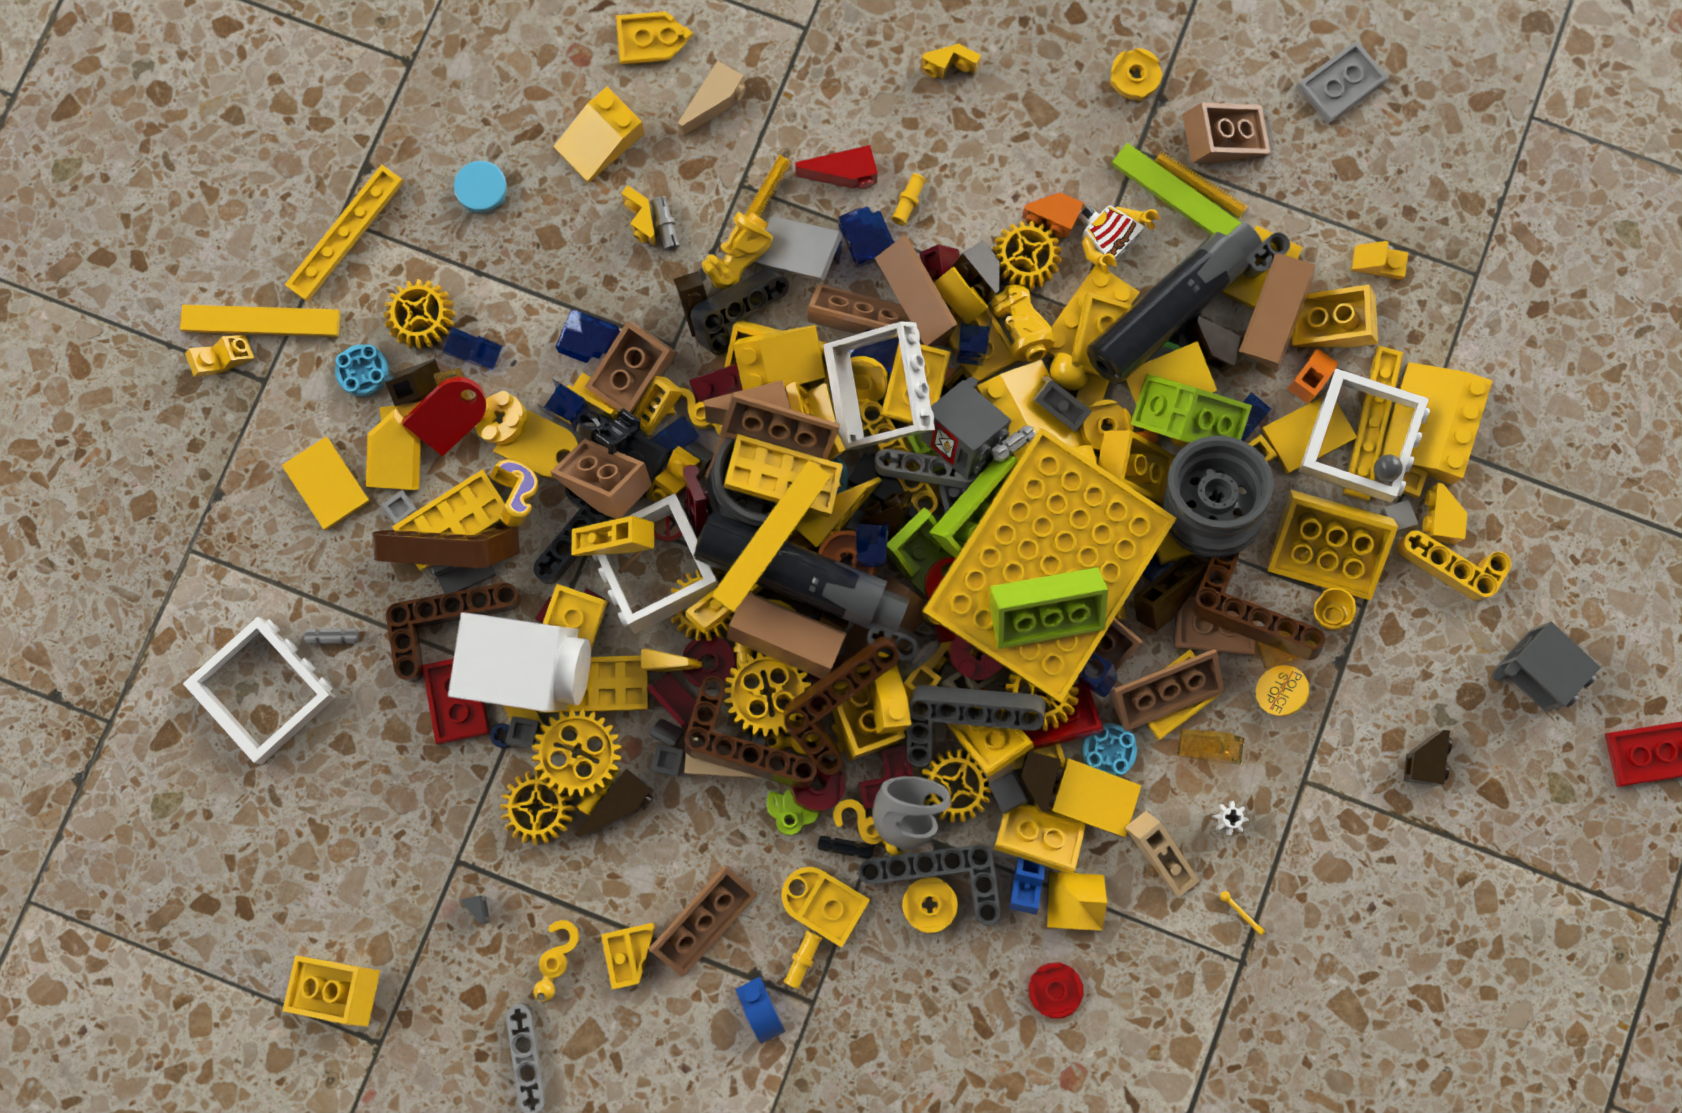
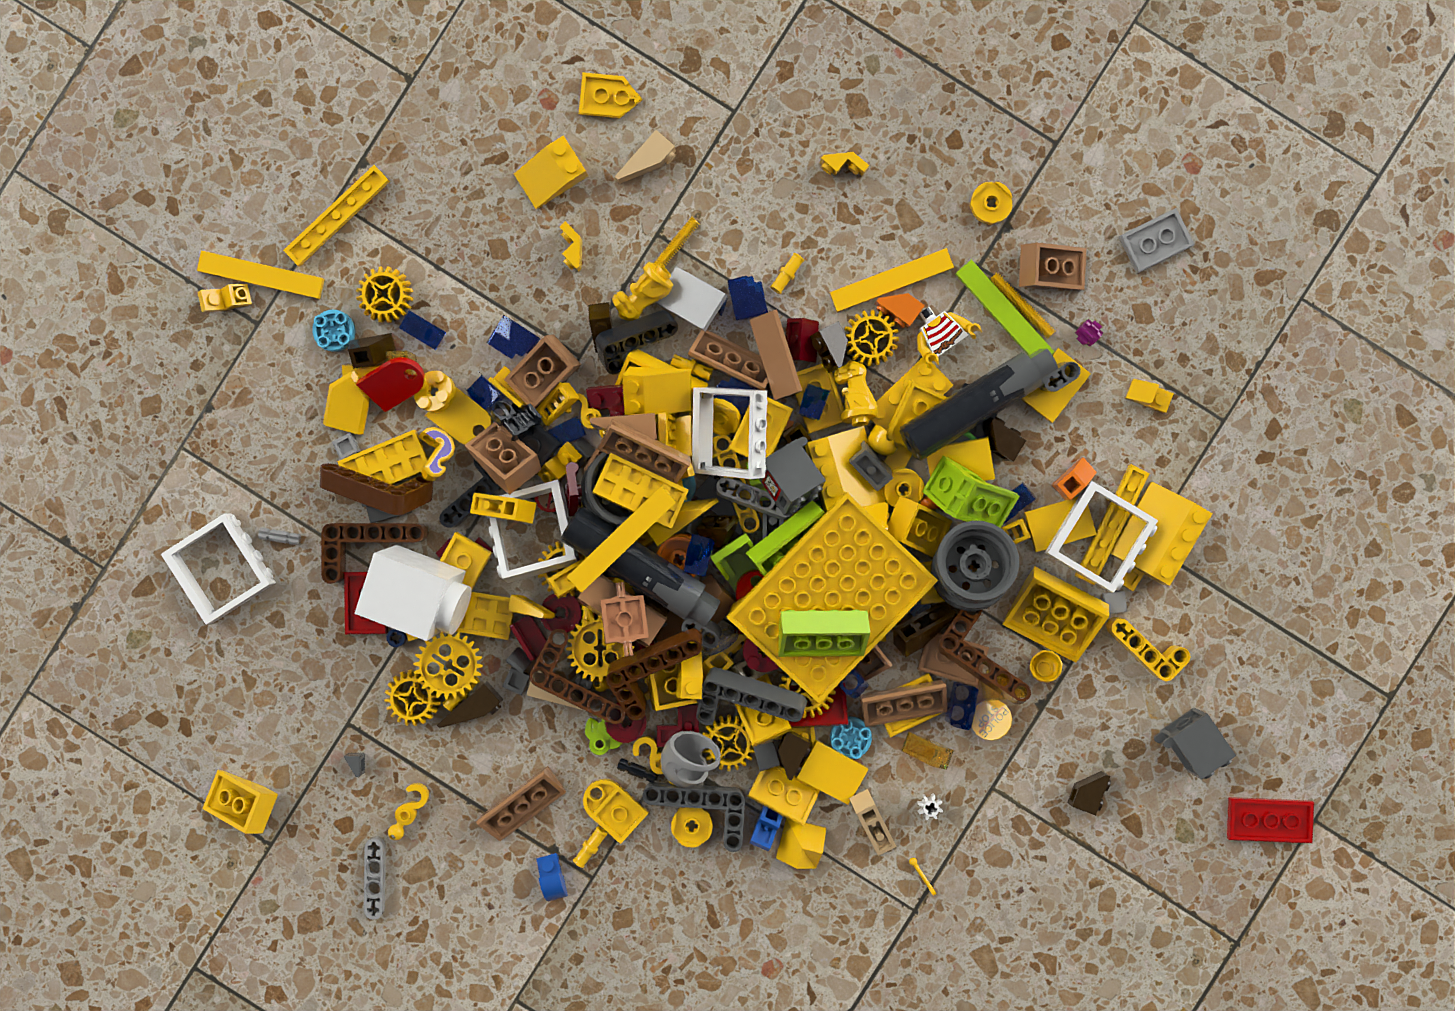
camera: 15 degrees right, 10 degrees up
(326, 483) = (292, 415): yellow tile -> none
(480, 187) = (449, 197): medium azure tile -> none
(522, 732) = (409, 643): dark grey plate -> none
(627, 954) = (461, 817): yellow wing -> none
(665, 223) = (590, 256): light grey pin -> none
(793, 639) = (624, 619): none -> nougat plate
(824, 332) = (696, 368): none -> yellow pin
(845, 168) = (745, 238): red slope -> none
(960, 296) = (809, 363): yellow slope -> none
(1013, 443) = (824, 497): light grey axle -> none
(1036, 185) = (891, 280): none -> yellow tile
(1055, 990) = (772, 904): red tile -> none
(1252, 690) = (968, 711): none -> clear blue piece
(1277, 310) = (1057, 424): medium nougat slope -> none
(1288, 199) = (1089, 332): none -> magenta gear
(1338, 319) = (1102, 436): yellow slope -> none
(1388, 468) = (1112, 570): dark grey piece -> none
(1445, 516) = (1149, 610): yellow slope -> none

